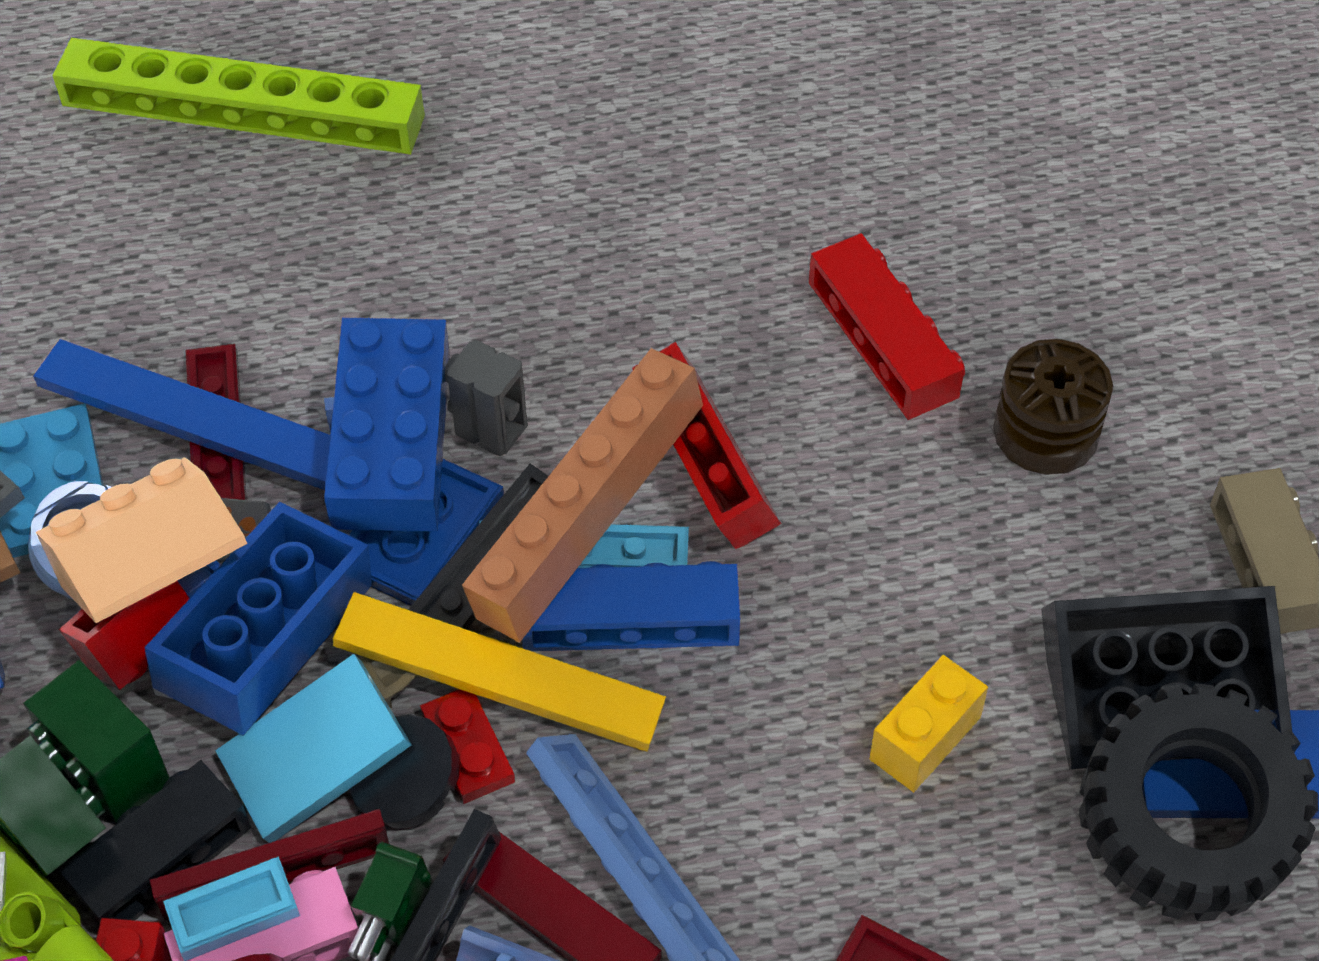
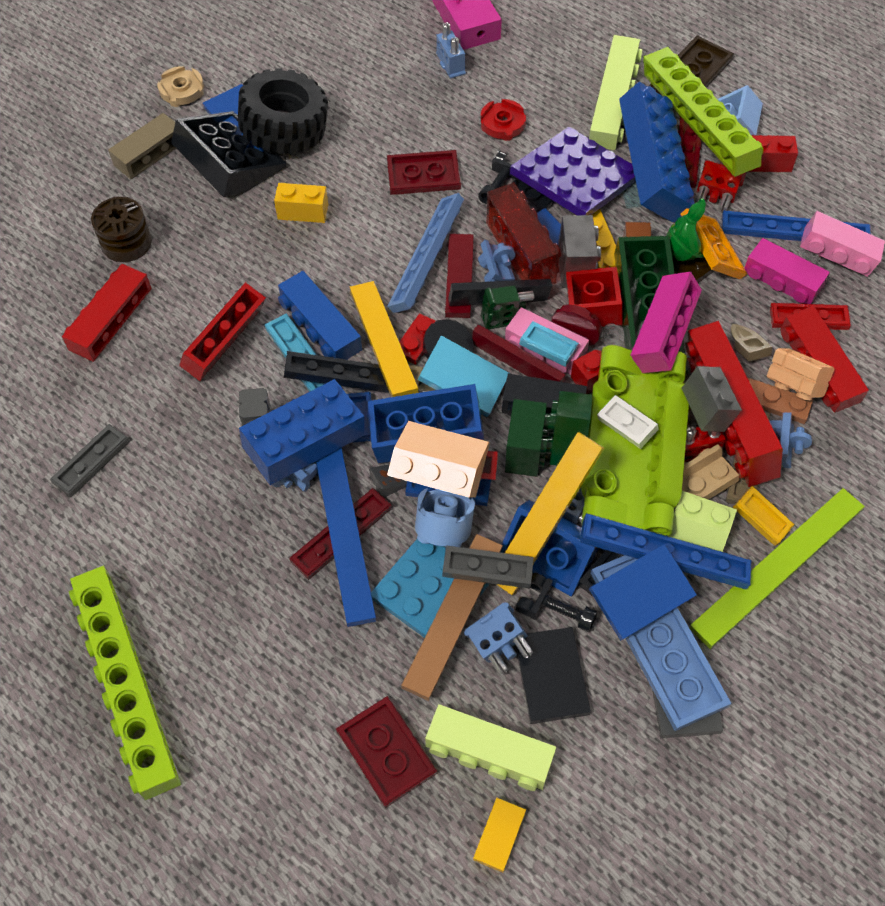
camera: 125 degrees left, 5 degrees up
(583, 495) = (287, 332): nougat brick -> none
(619, 204) = (89, 460): none -> dark grey tile

